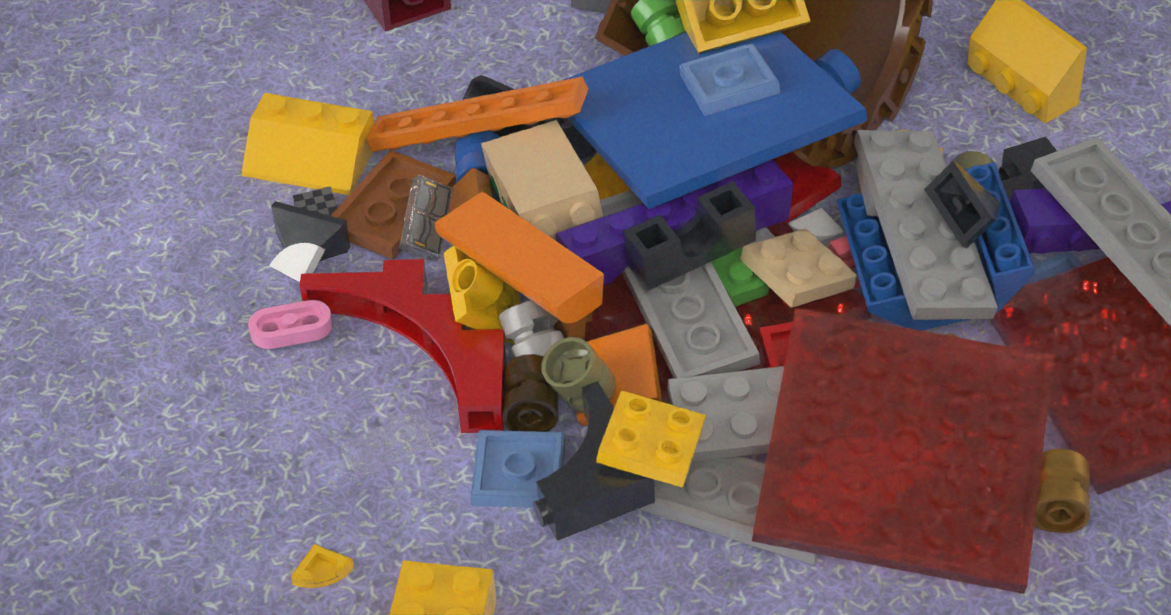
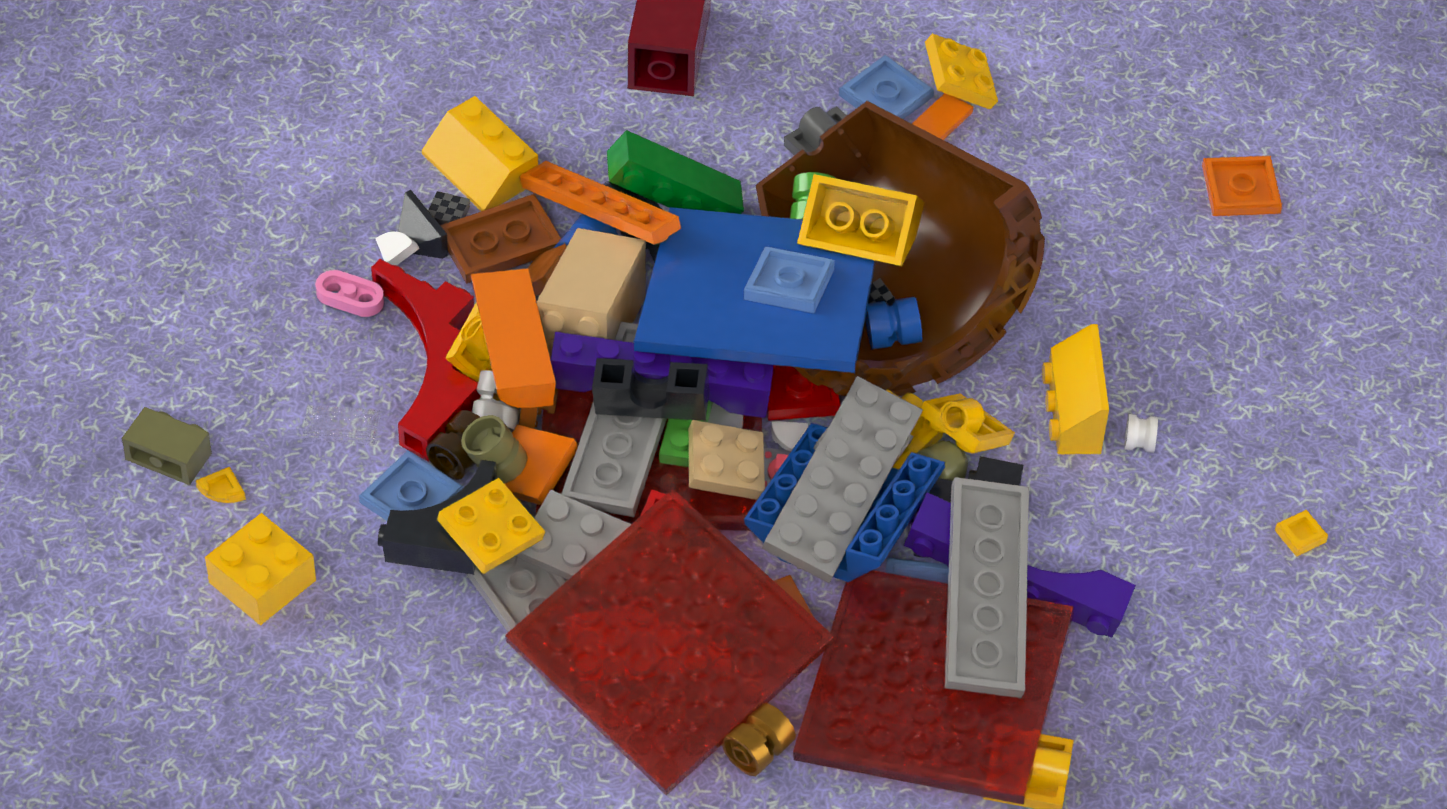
camera: 30 degrees right, 5 degrees up
(233, 559) = (167, 445): none -> olive brick
(425, 206) = (518, 252): tile -> none
(515, 63) = (671, 177): none -> green brick
(963, 203) = (874, 480): black slope -> none
(973, 133) = (966, 423): none -> yellow plate
(1103, 67) = (1141, 433): none -> white wheel

